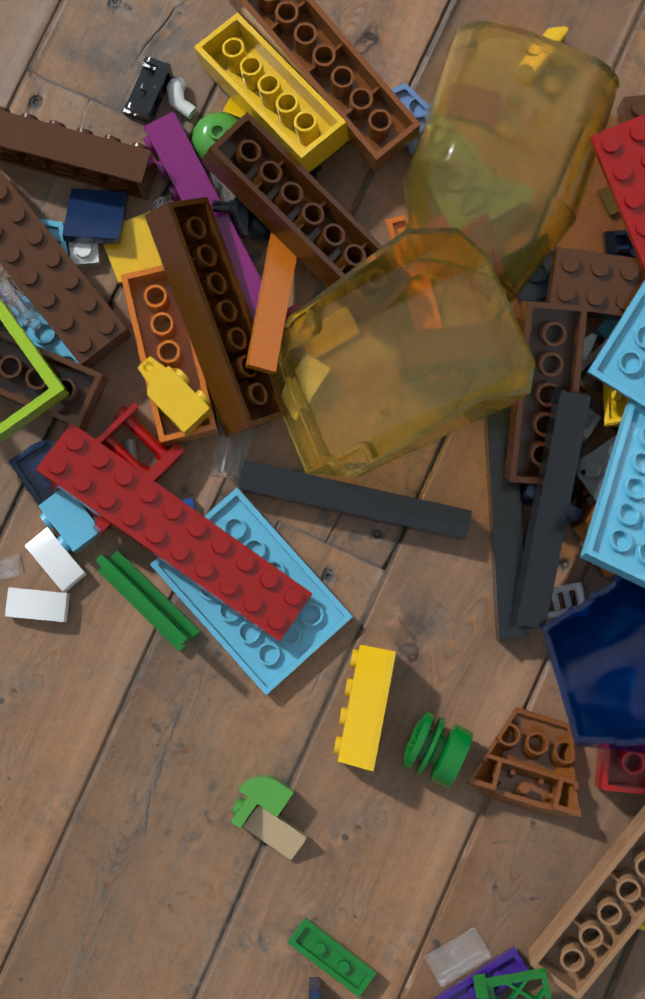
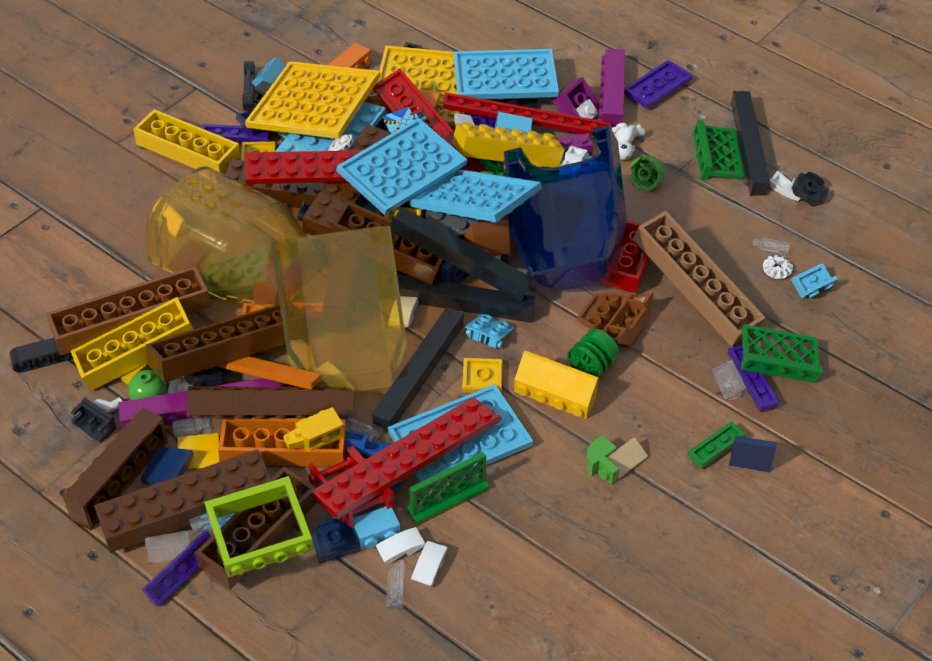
camera: 75 degrees left, 35 degrees down
(197, 467) = (362, 444): none -> blue slope
(372, 592) = (481, 373): none -> yellow tile
(457, 448) = (408, 306): none -> white slope
(459, 582) = (492, 330): none -> medium azure hinge

